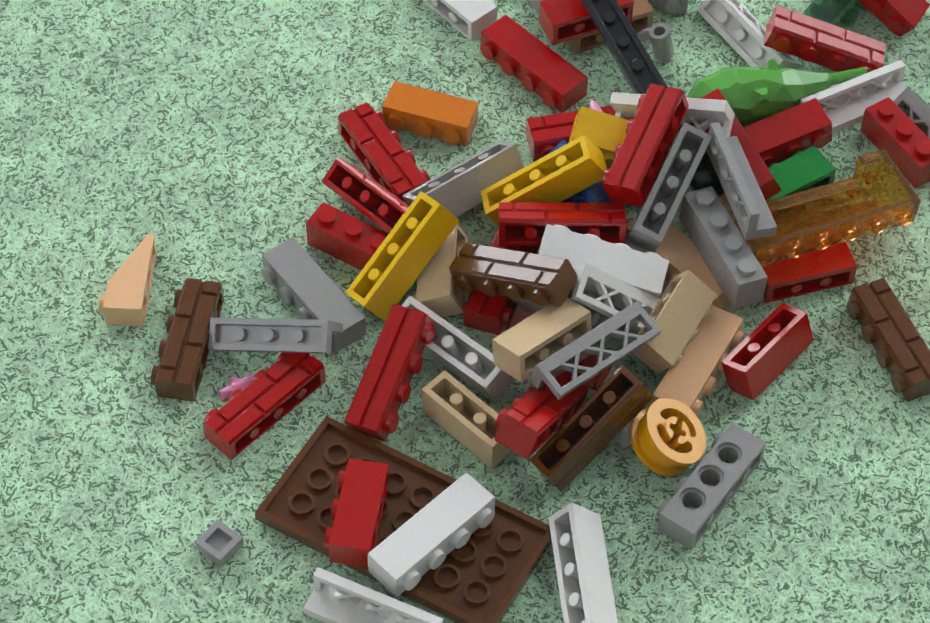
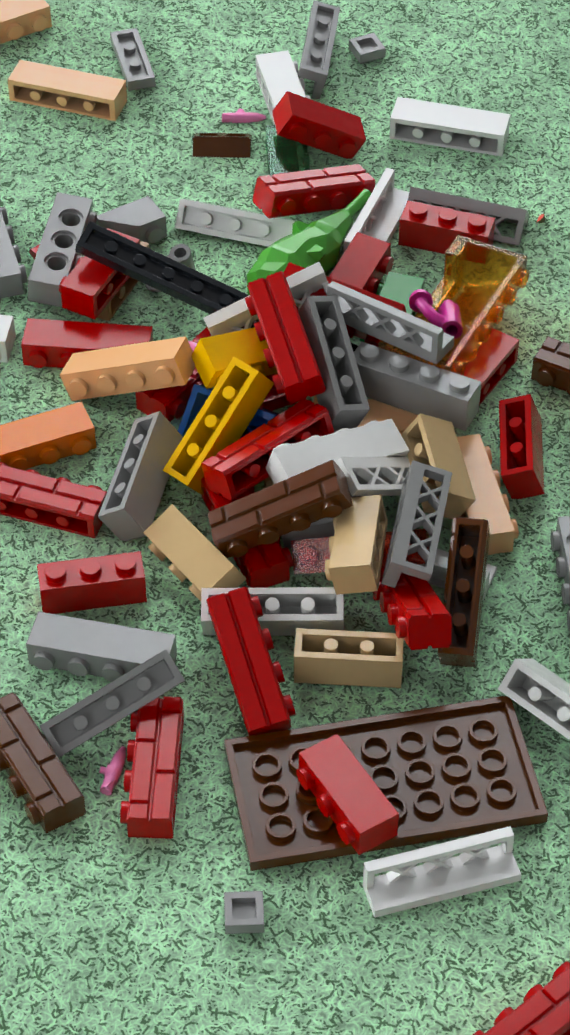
camera: 40 degrees left, 5 degrees down
(365, 194) = (84, 534): red brick -> none
(402, 255) = (161, 560): yellow brick -> none
(431, 535) = (426, 768): white brick -> none
(531, 98) = (128, 368): none -> light nougat brick
(667, 437) = (522, 561): light orange wheel -> none
(817, 212) = (448, 314): none -> dark pink plant

